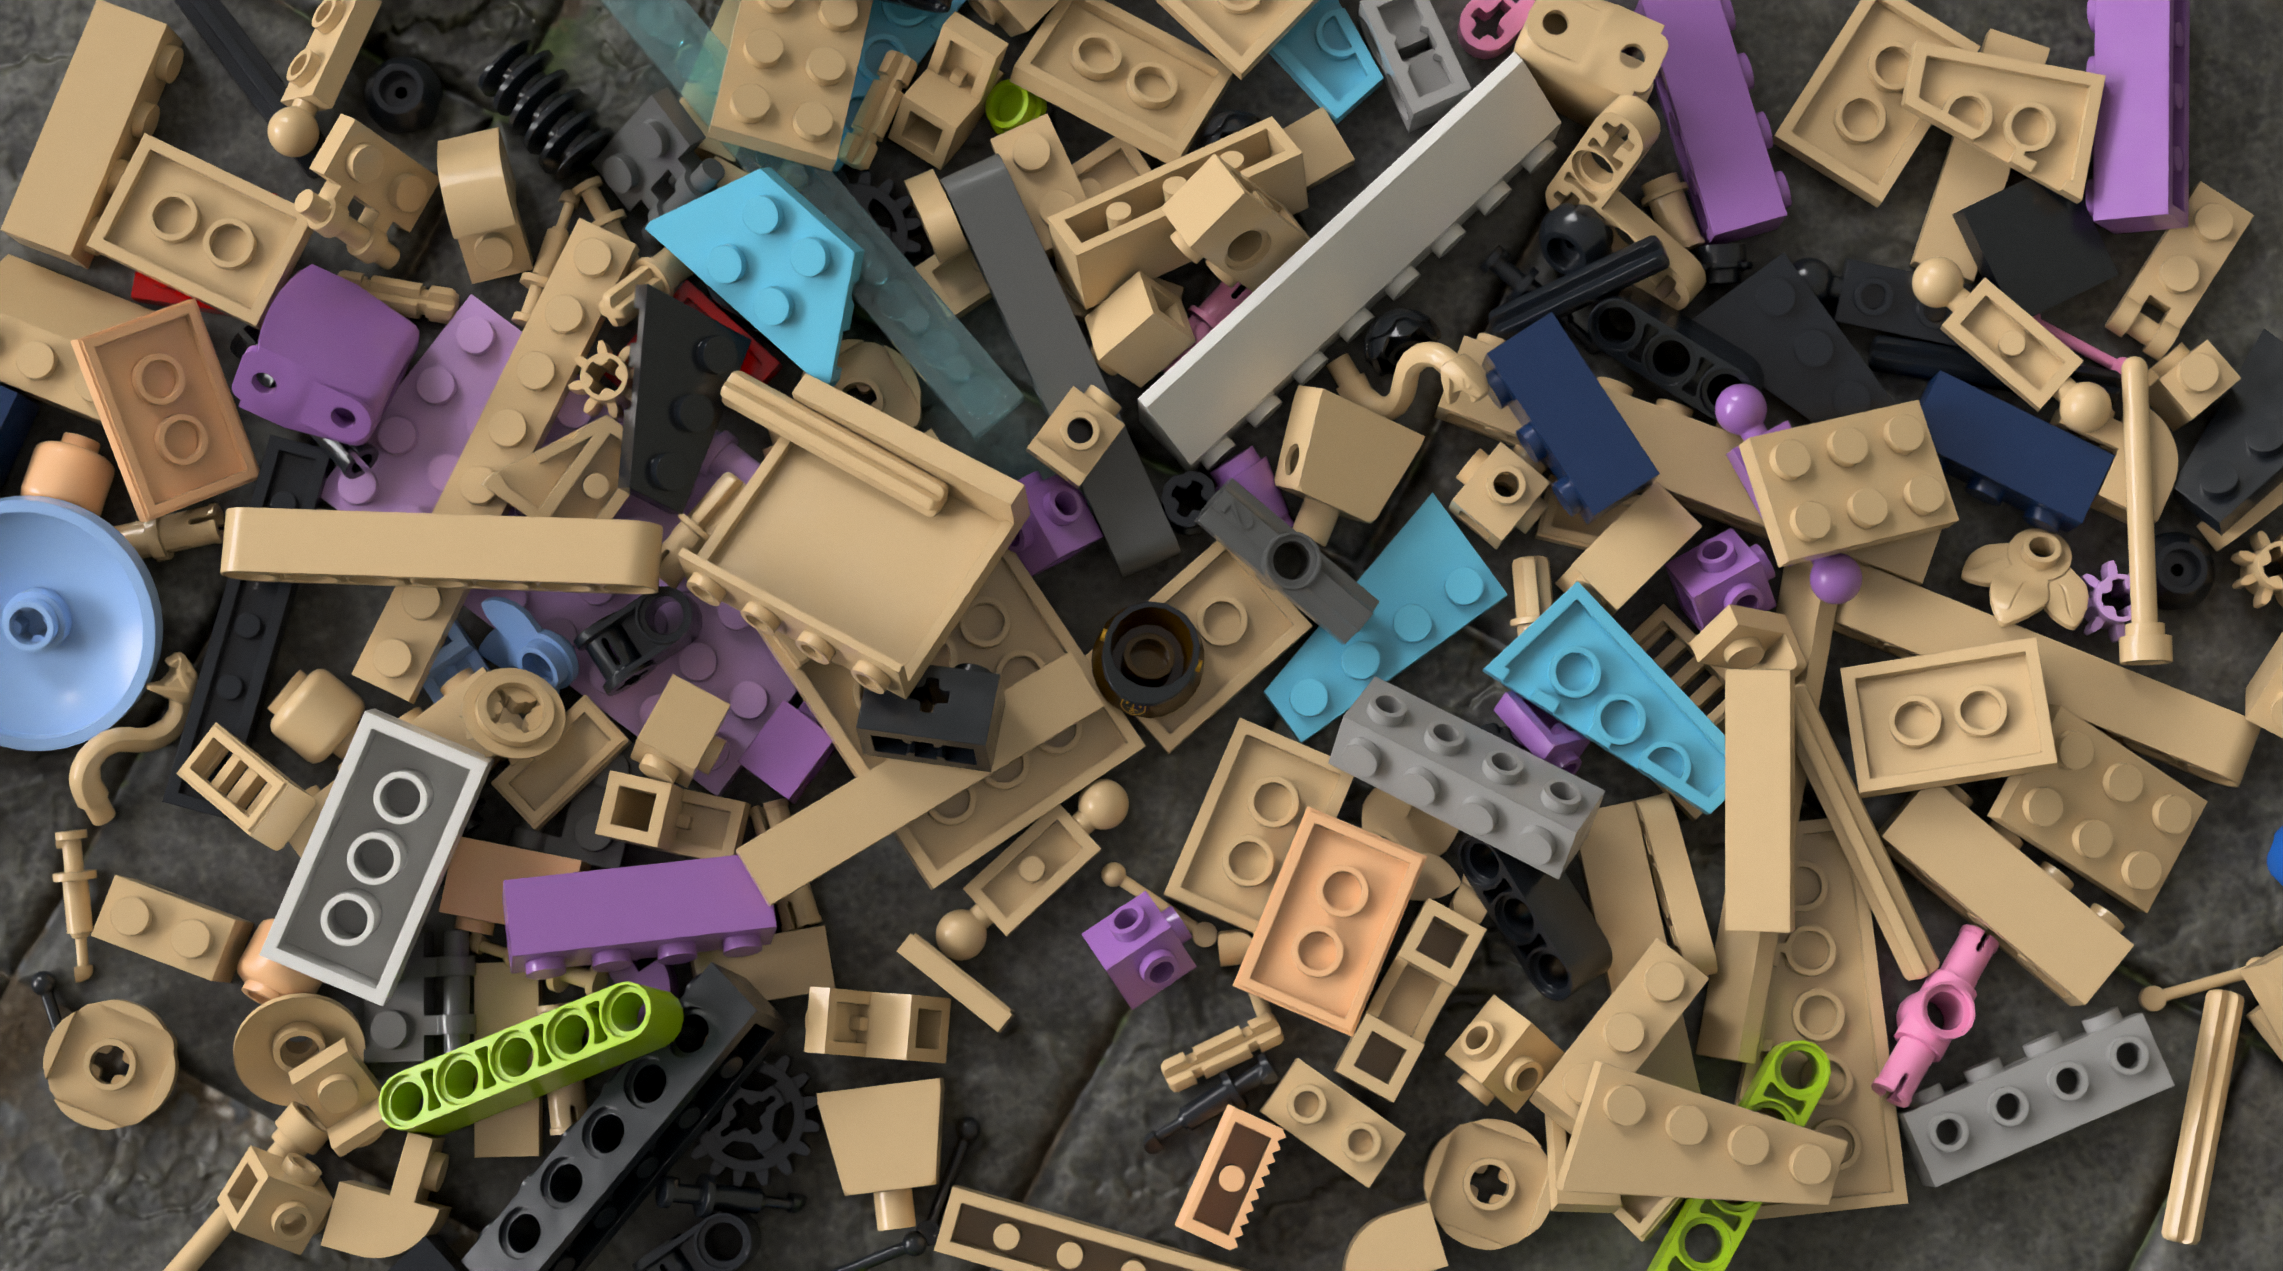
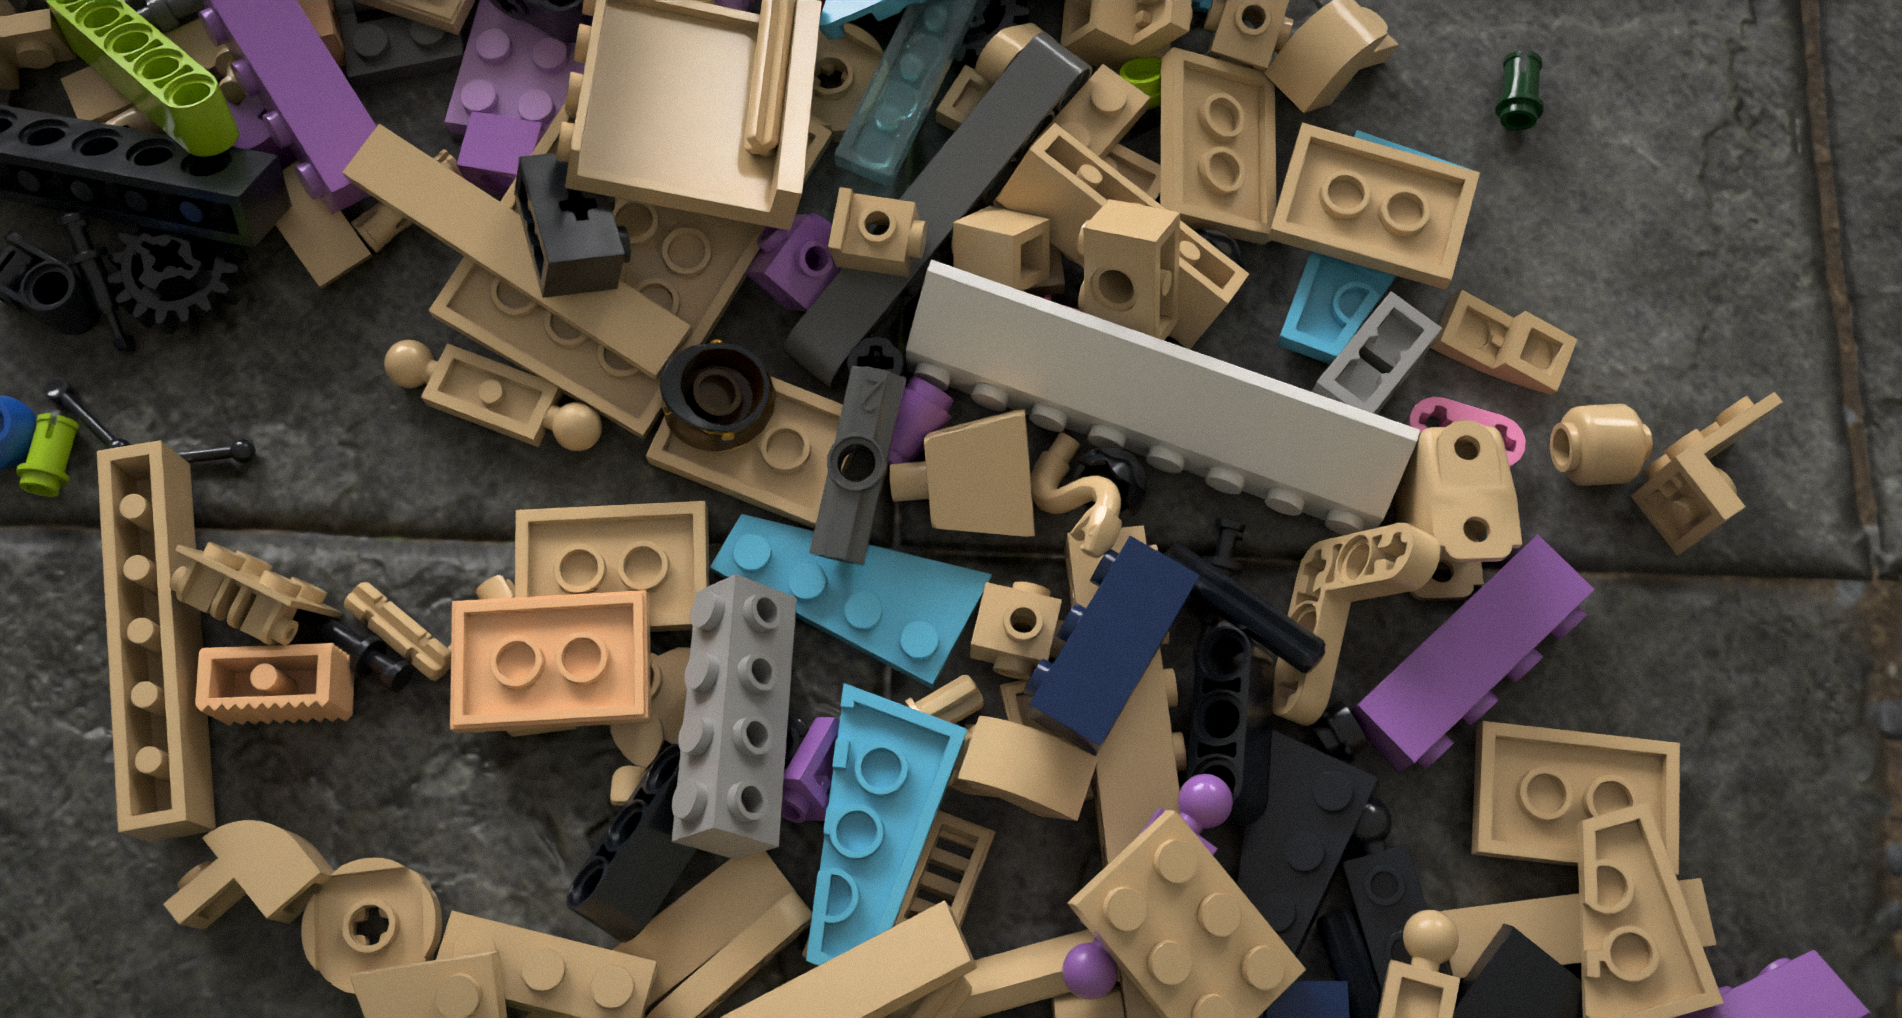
camera: 60 degrees right, 10 degrees down
(671, 818) = (402, 78): tan brick -> none
(681, 734) = (469, 50): tan brick -> none
(877, 1025) = (294, 323): tan brick -> none
(886, 1143) = (197, 385): tan torso -> none
(956, 982) = (361, 378): tan tile -> none
(1105, 1167) = (246, 593): none -> tan hinge
(1114, 875) = (521, 468): tan hinge -> none
(1141, 948) = (454, 511): medium lavender brick -> none
(1321, 146) = (1242, 334): tan tile -> none
(1332, 1122) = (367, 752): tan brick -> none
(1409, 1000) = (493, 769): tan arch -> none
(1503, 1056) = (495, 876): tan brick -> none
(1574, 237) = (1288, 583): black plate -> none
(1671, 209) = (1361, 664): tan pin -> none
(1721, 574) = (1036, 872): medium lavender brick -> none
(1749, 641) = (992, 920): tan bracket -> none

